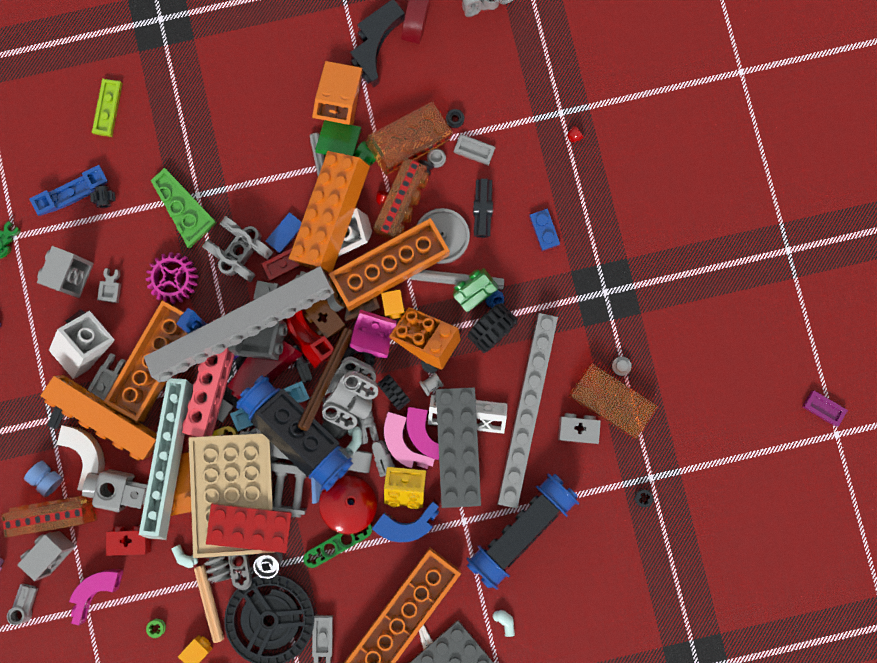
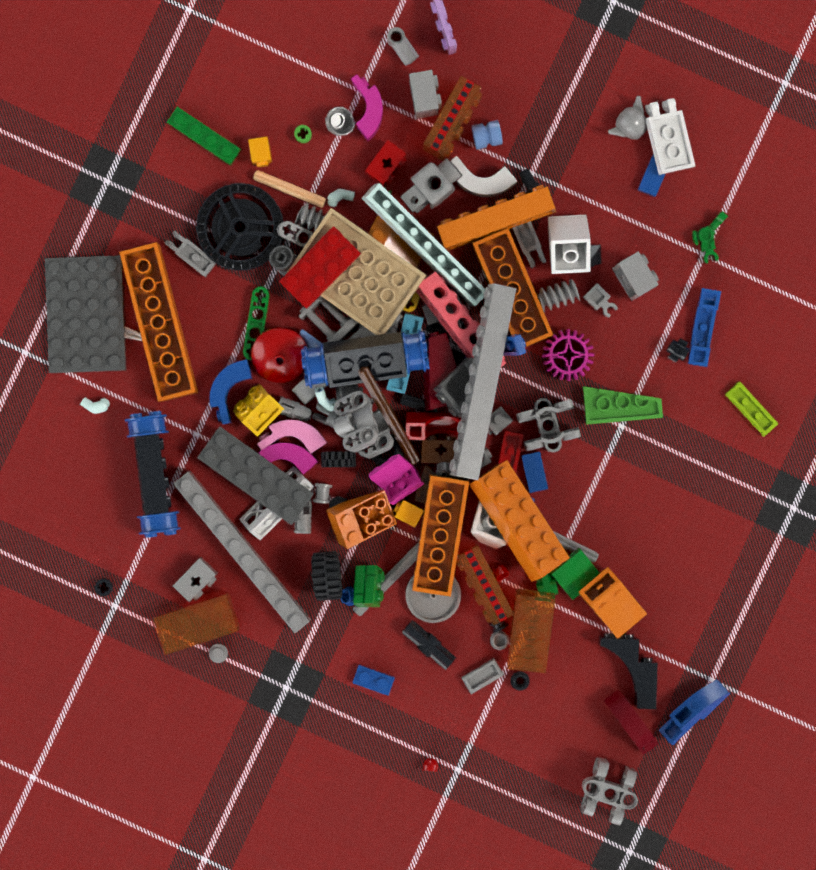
camera: 120 degrees right, 5 degrees up
(121, 606) = (339, 121): none -> light grey hair
(127, 322) = (558, 294): none -> light grey piece
(466, 380) = (303, 521): none -> light grey hinge
(824, 408) = (60, 784): magenta tile -> none

